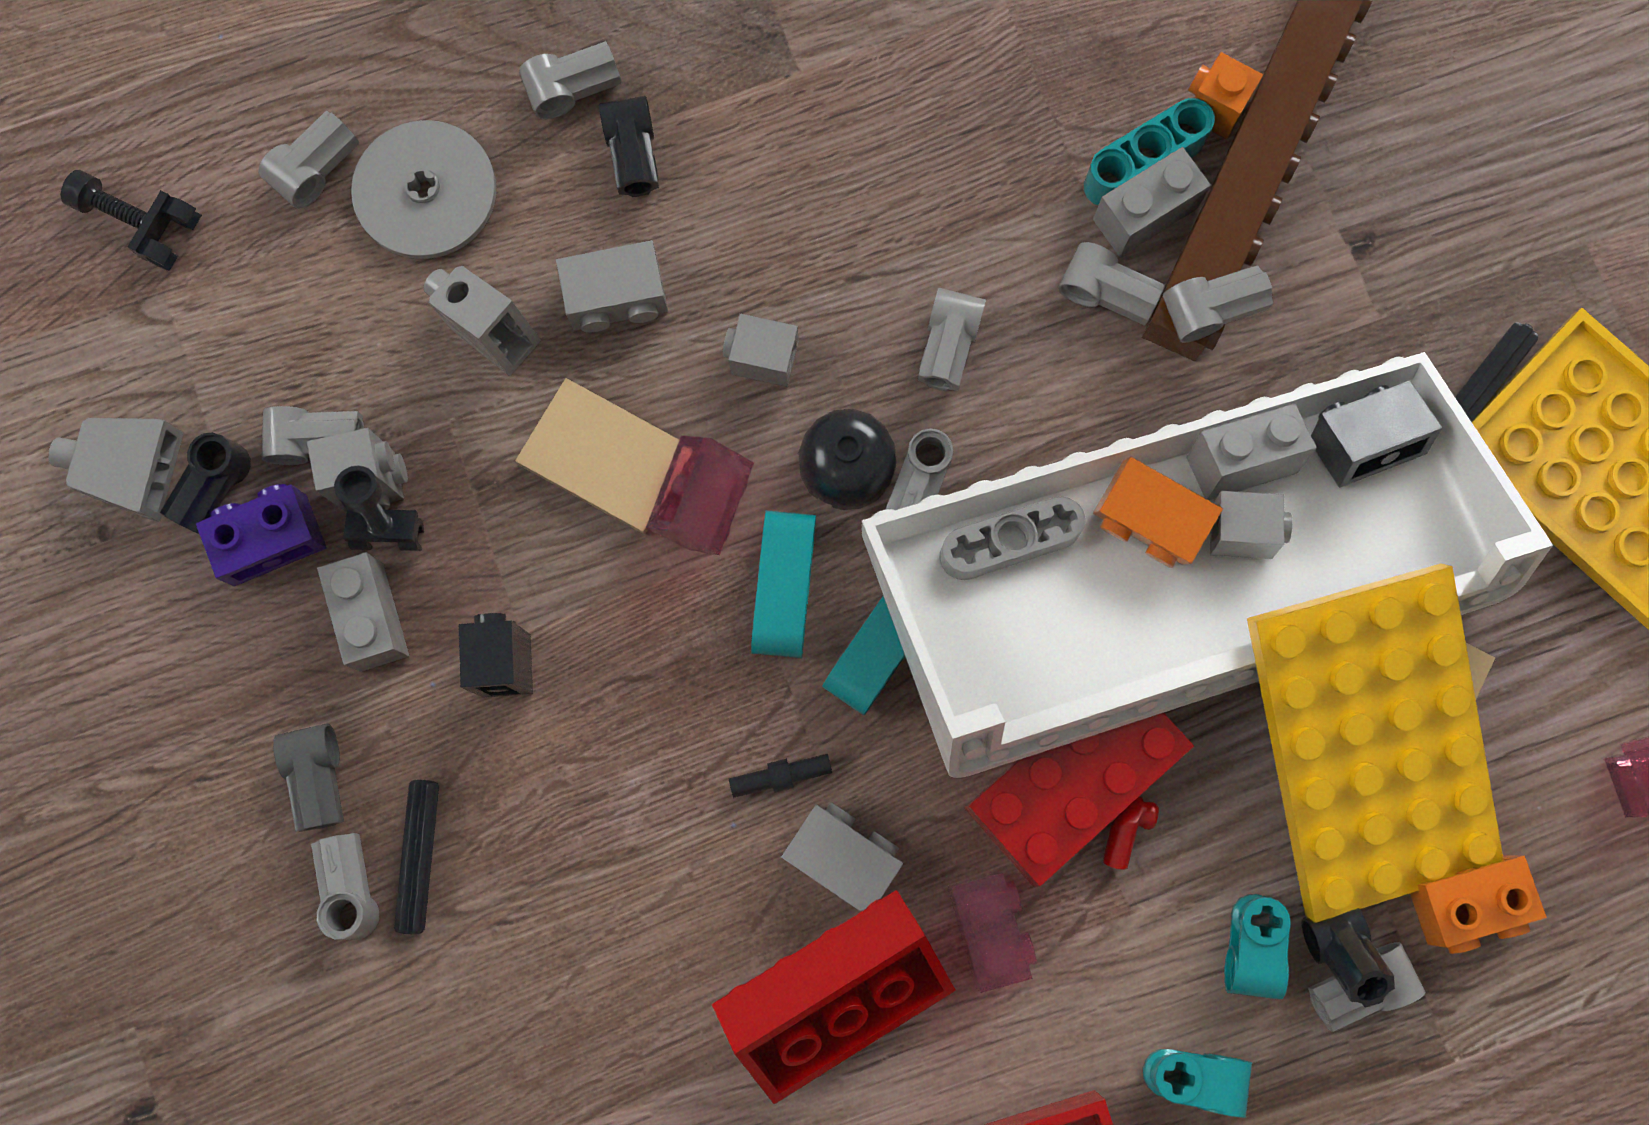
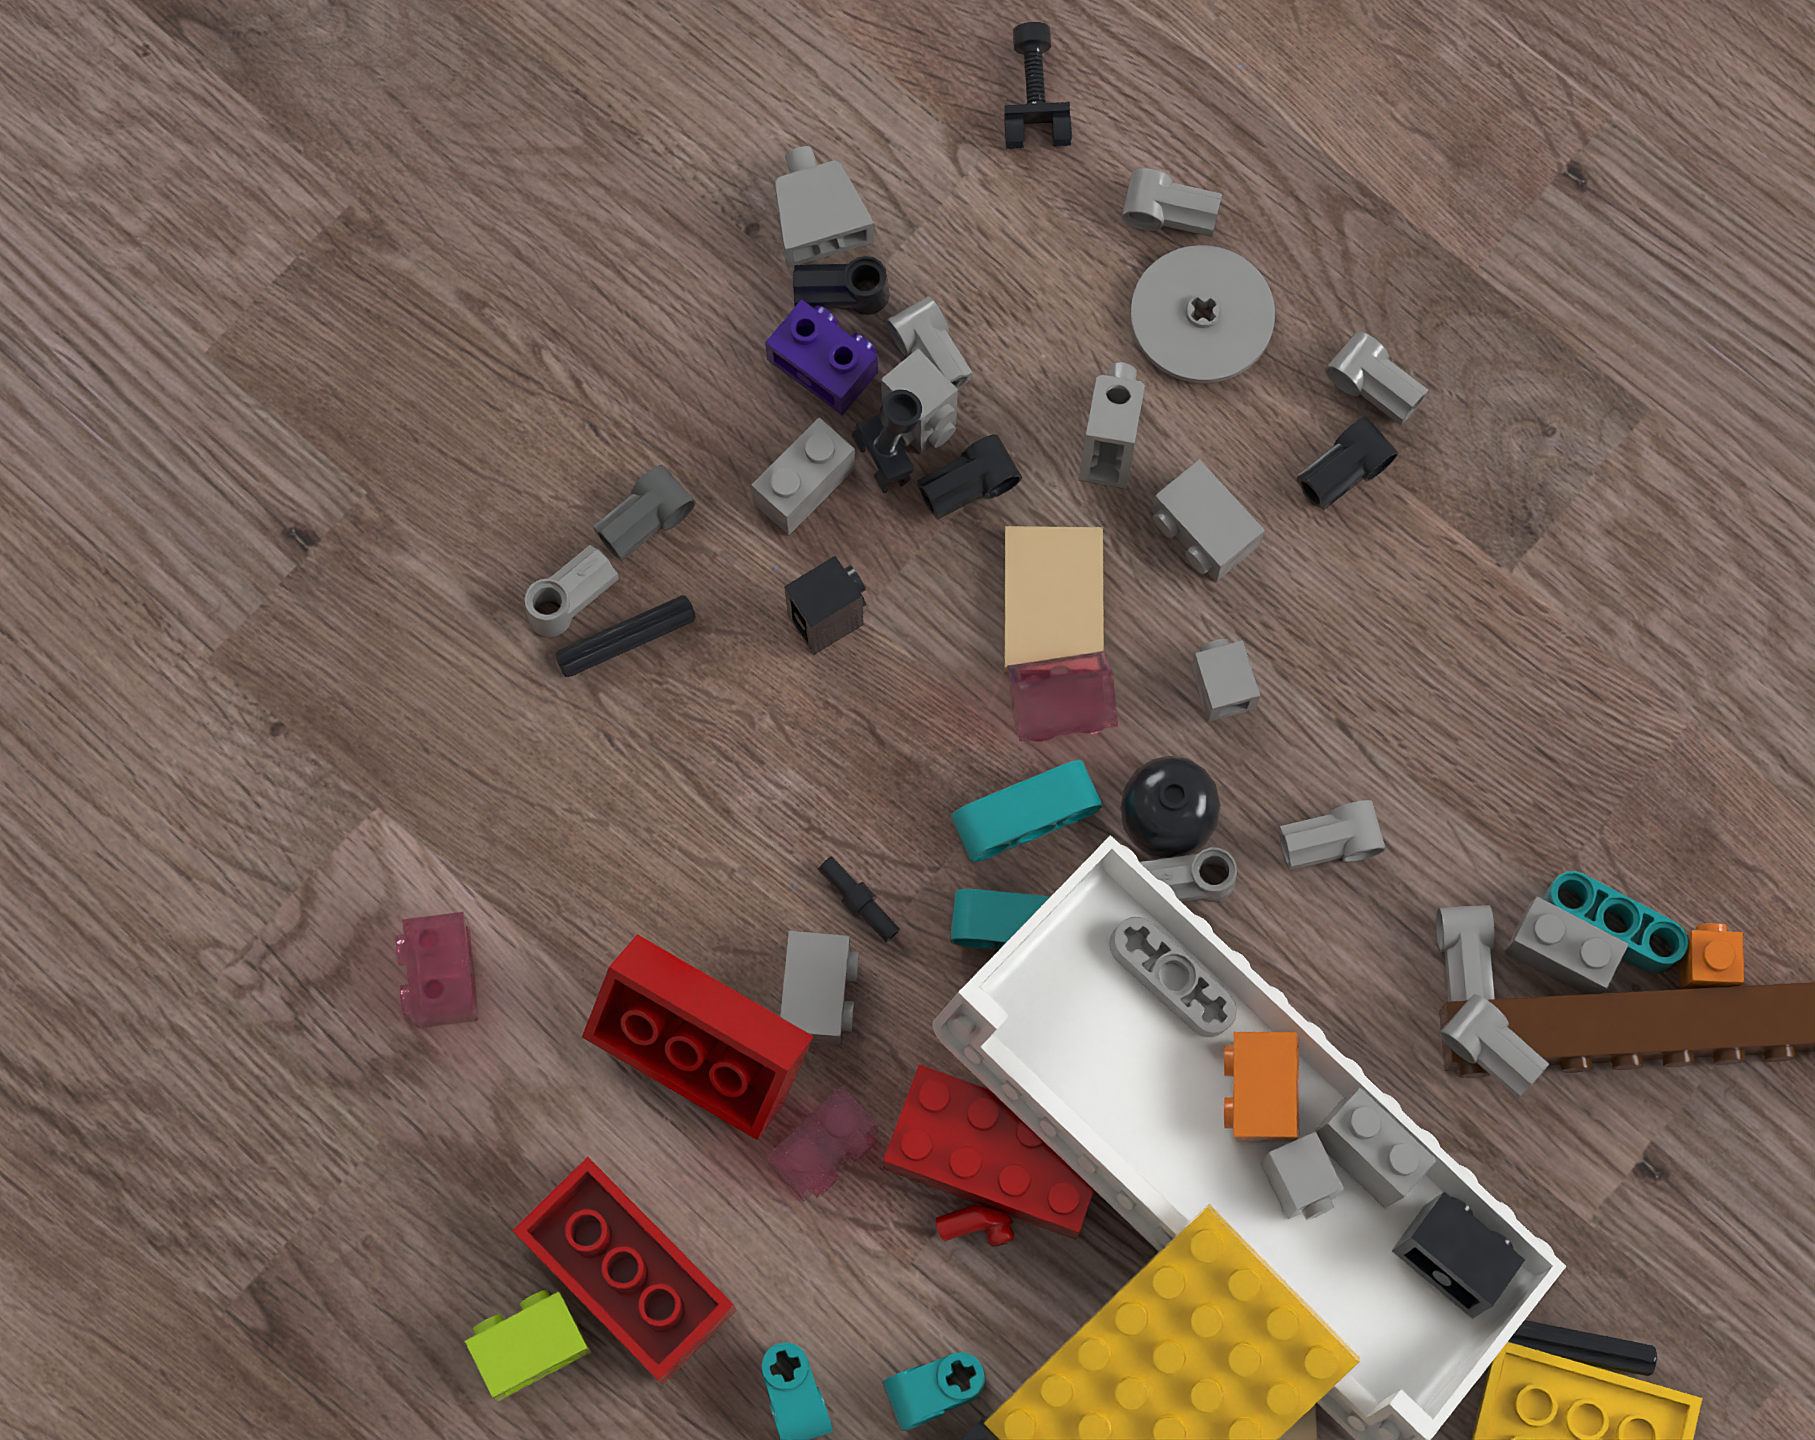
camera: 60 degrees right, 5 degrees down
(452, 453) = (981, 471): none -> black piece

